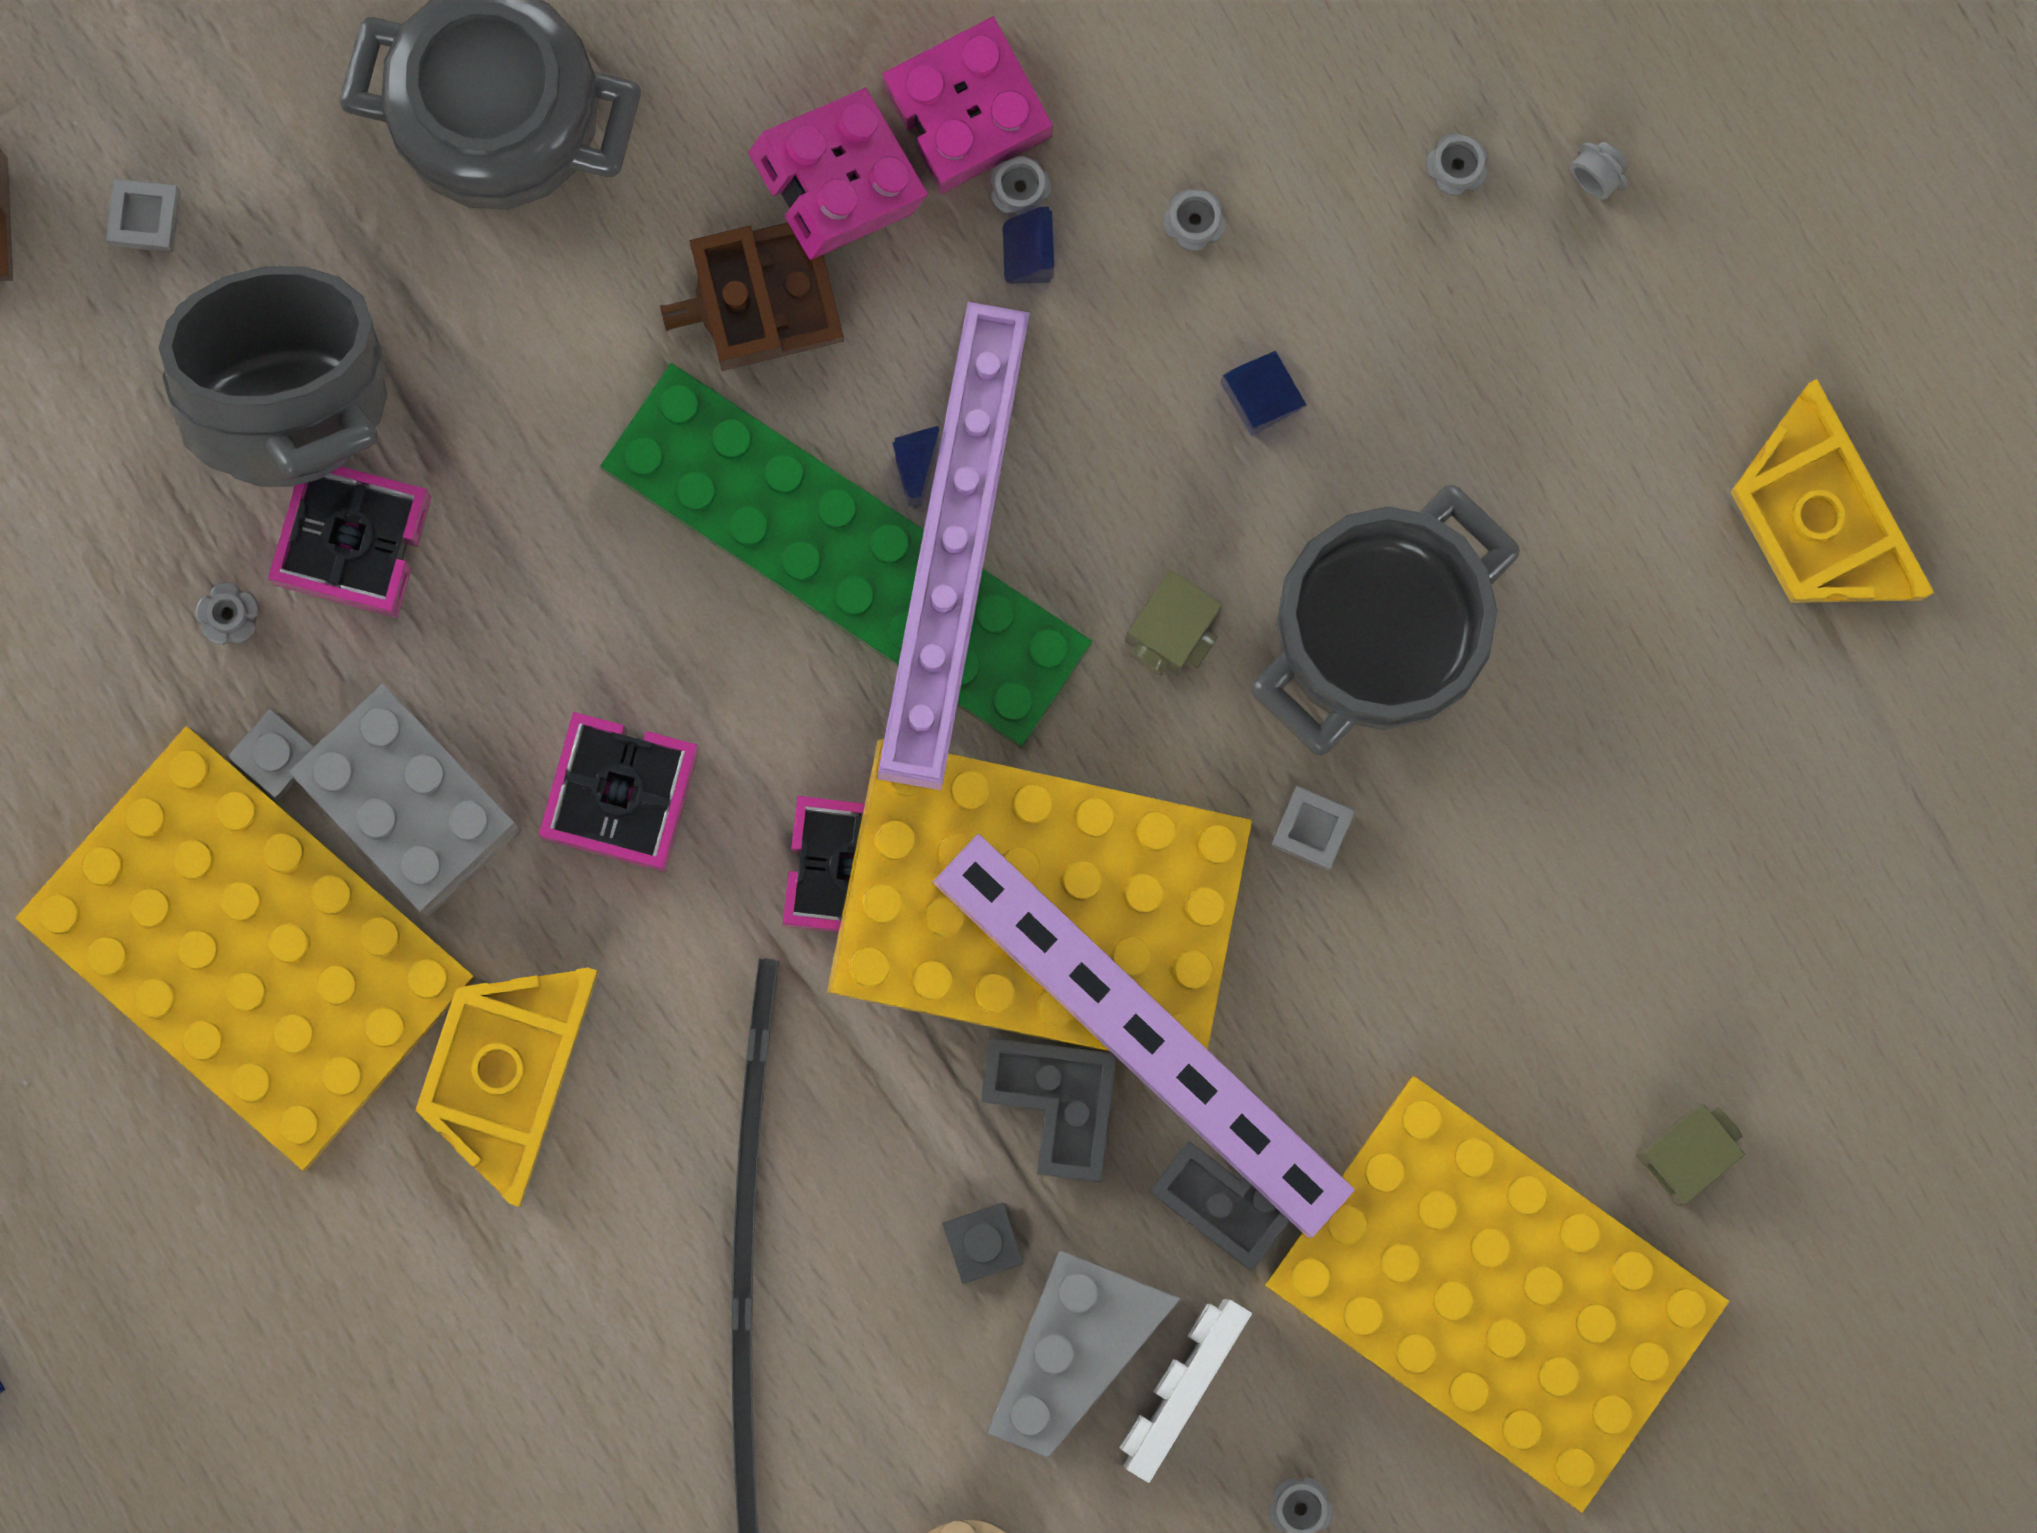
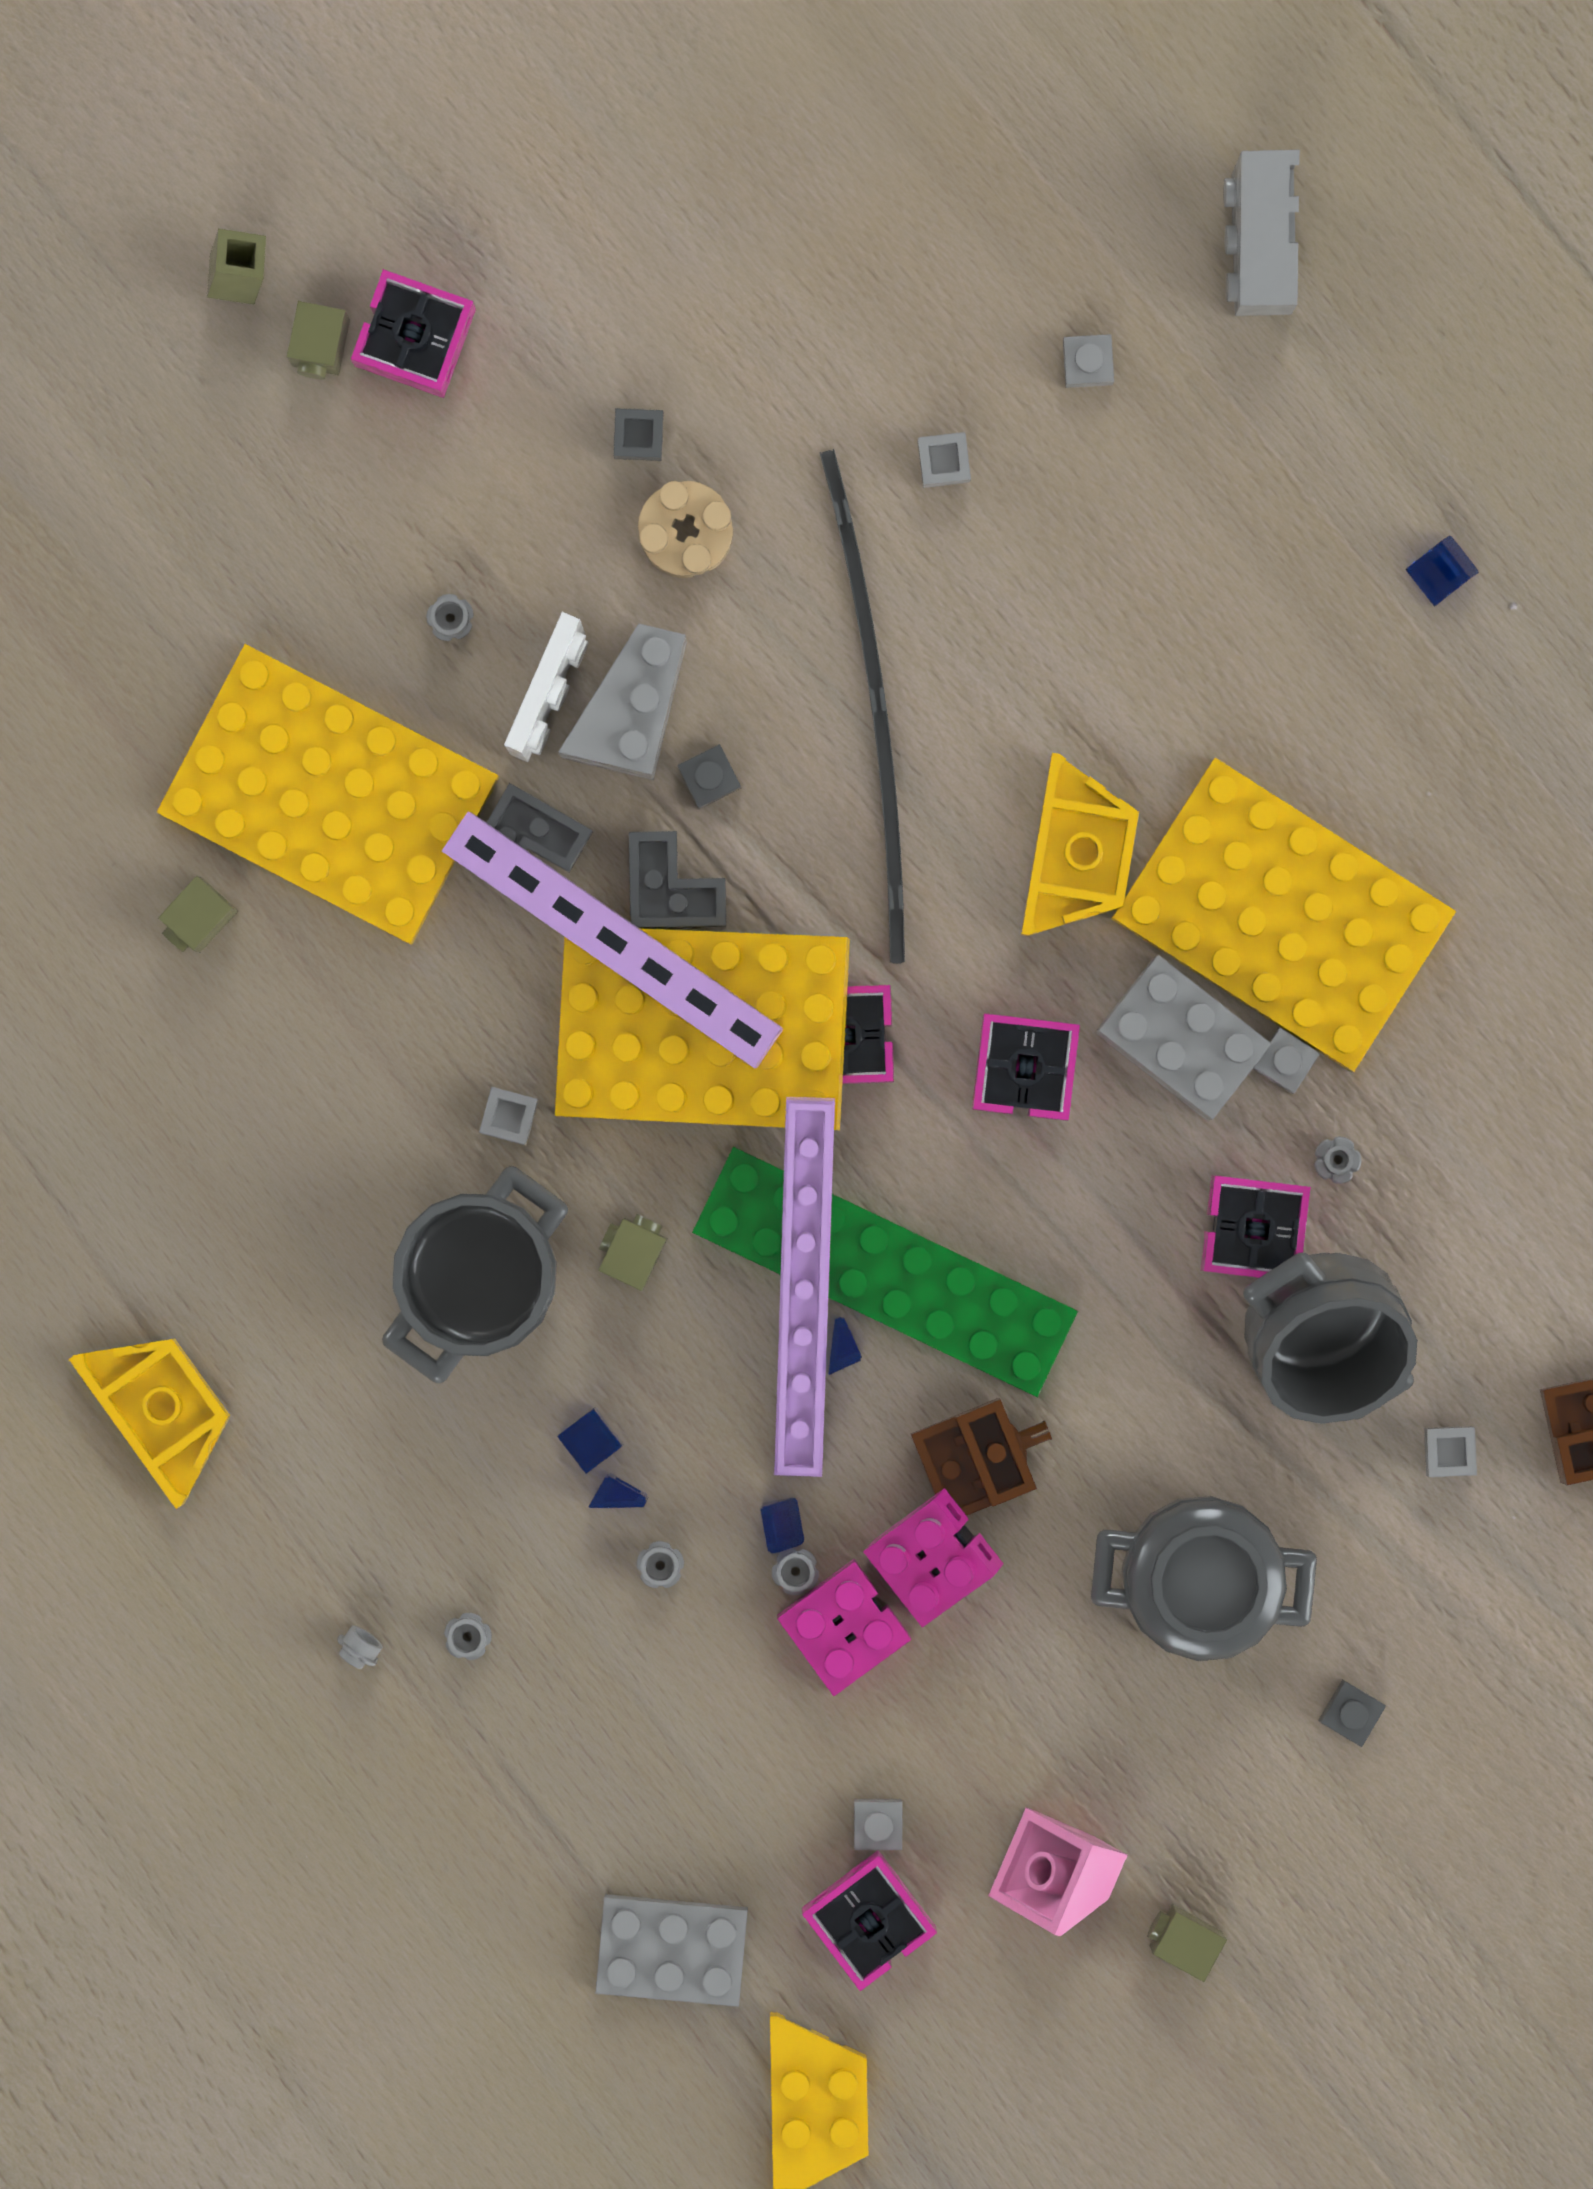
camera: 175 degrees right, 5 degrees up
(1237, 314) = (618, 1494): none -> clear blue slope

